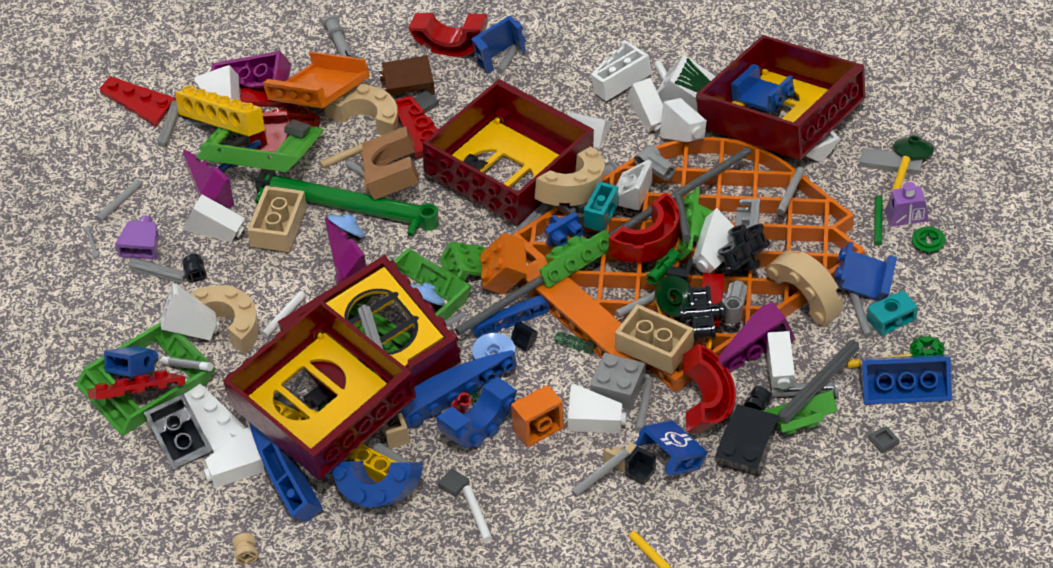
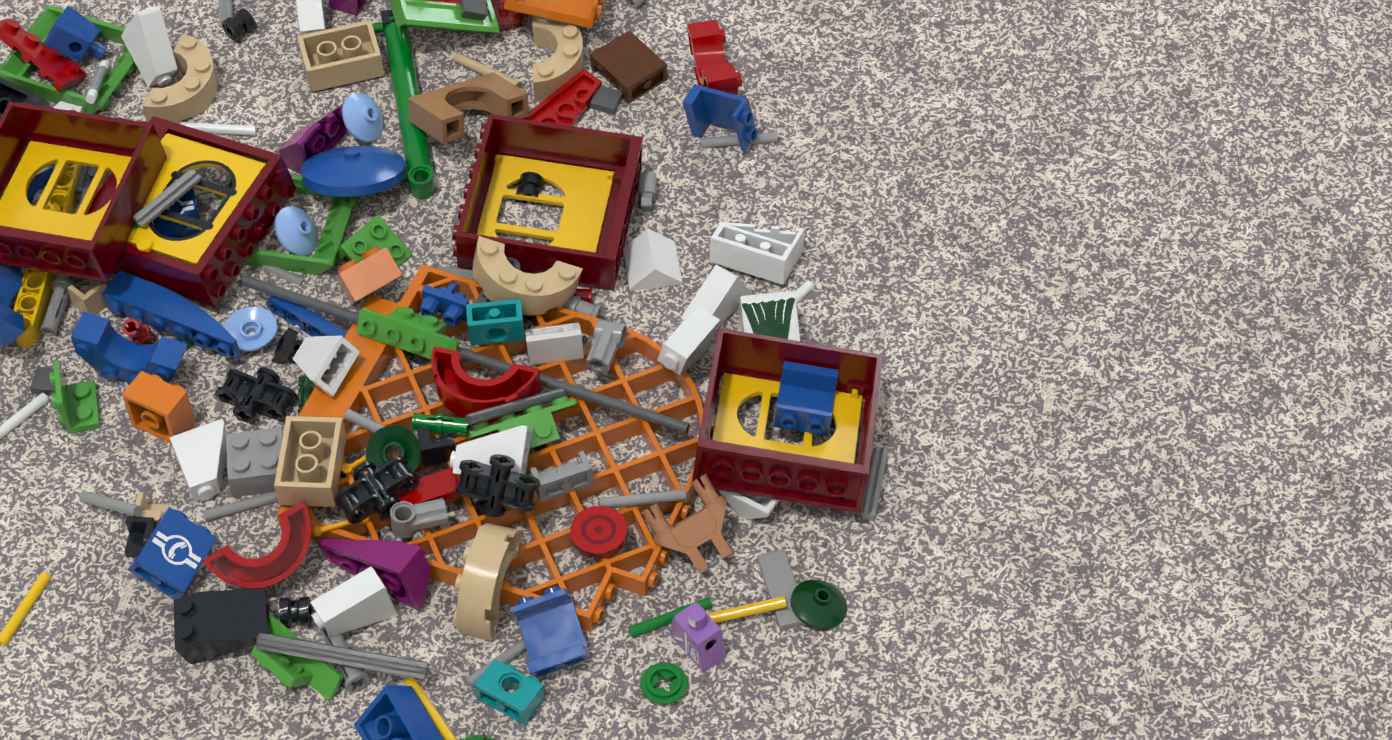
camera: 60 degrees right, 5 degrees up
(400, 240) = (353, 171): none -> blue dish
(489, 468) = (75, 402): none -> bright green bracket
(555, 365) = (256, 395): none -> black axle
(562, 311) = (315, 357): none -> white slope
(803, 220) = (598, 532): none -> red tile
(832, 172) = (696, 528): none -> nougat connector

